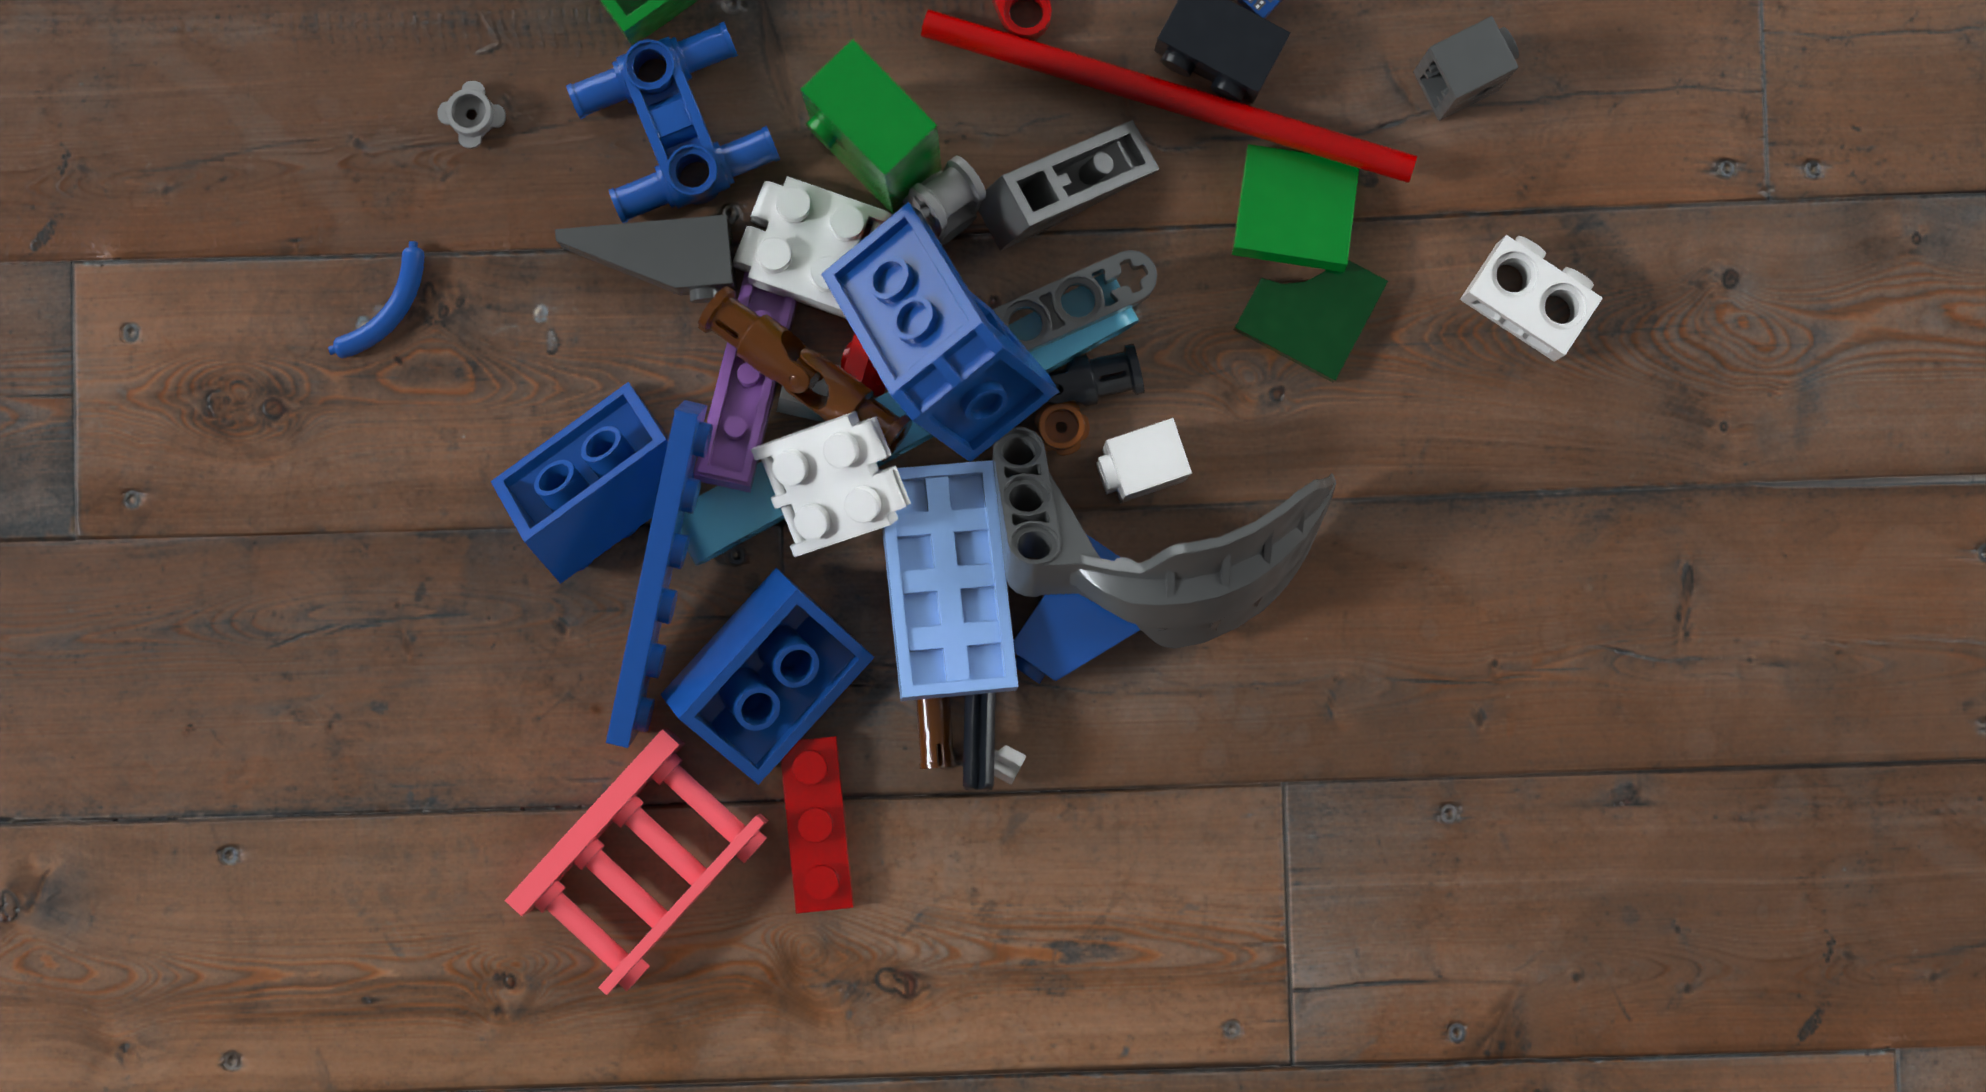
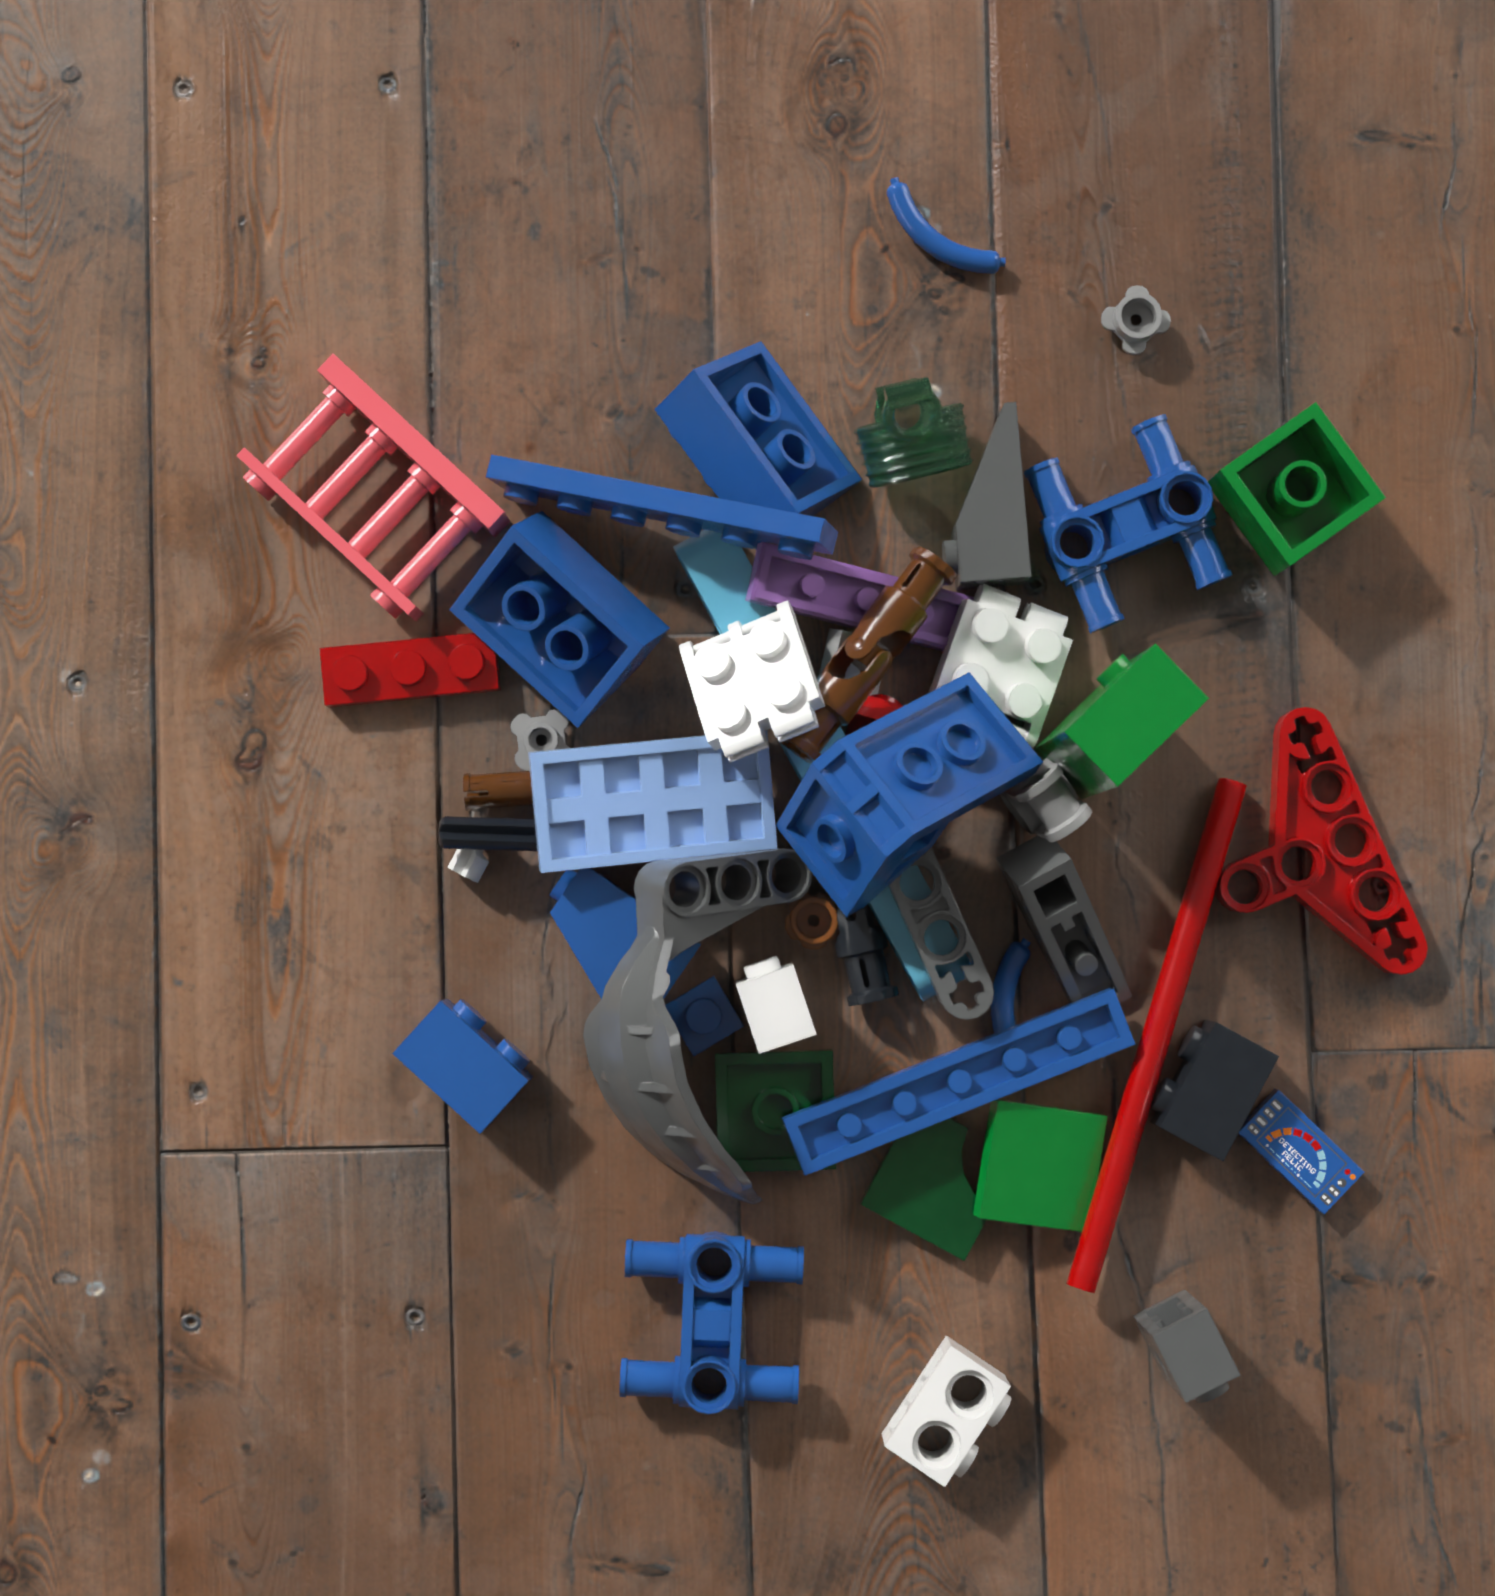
camera: 90 degrees right, 0 degrees up
(602, 322) = (926, 449): none -> clear green piece
(874, 705) = (529, 728): none -> light grey plate
(1149, 244) = (1005, 984): none -> blue piece
(1153, 529) = (704, 1016): none -> blue plate
(1202, 764) = (465, 1062): none -> blue brick
(1216, 286) = (958, 1081): none -> blue plate
(1243, 460) = (757, 1093): none -> dark green plate
(1449, 522) = (711, 1322): none -> blue piece

